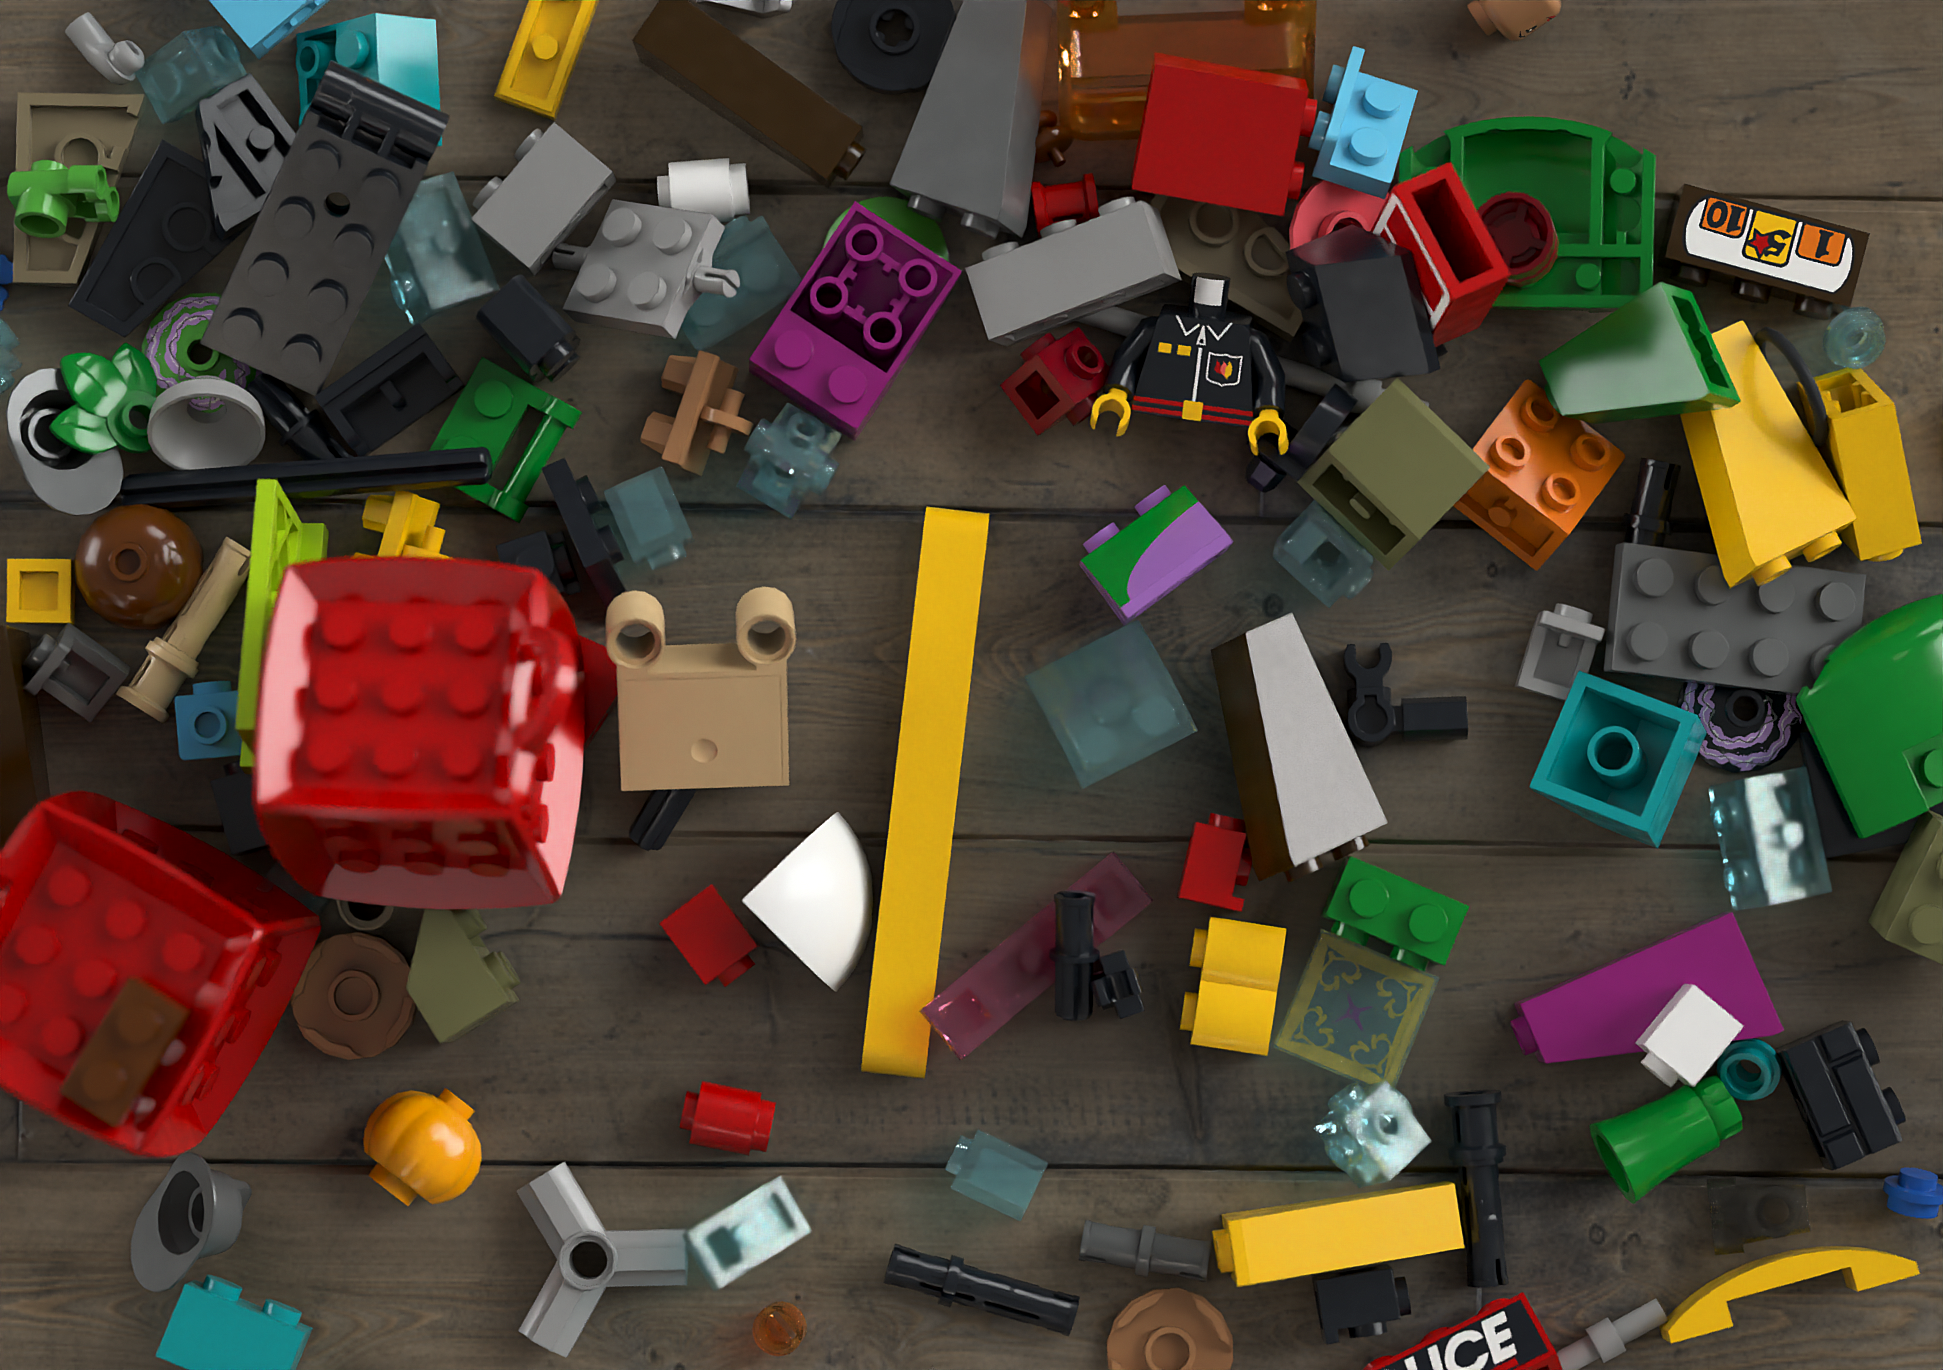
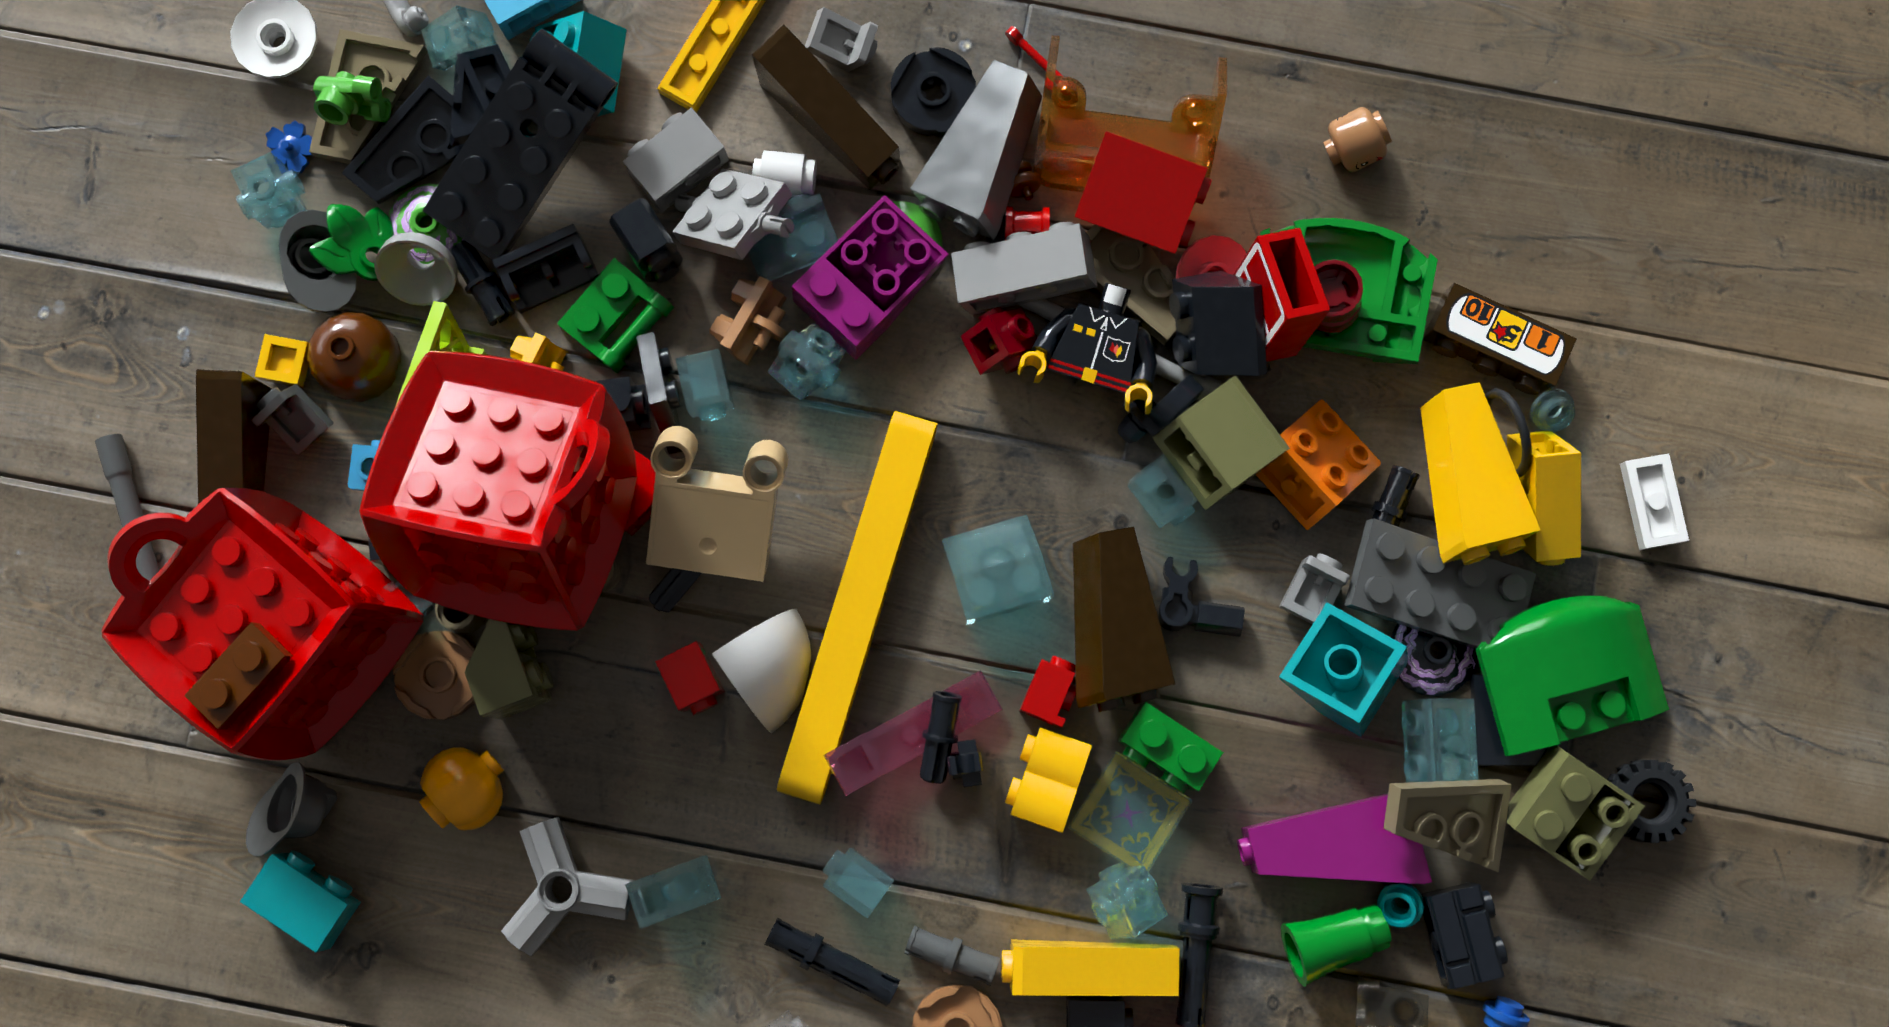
camera: 15 degrees right, 5 degrees down
(174, 656) = (363, 420): tan pin -> none
(310, 478) = (483, 315): black axle -> none
(438, 253) = (595, 180): clear light blue bracket -> none
(728, 1118) = (677, 807): red brick -> none
(771, 1335) = (678, 966): clear orange hinge -> none
(1153, 552) = (1046, 469): medium lavender slope -> none
(1364, 130) = (1238, 209): medium azure bracket -> none
(1640, 363) = (1405, 397): green slope -> none
(1687, 1037) = (1364, 874): white brick -> none
(1798, 937) = (1452, 816): none -> dark tan wing

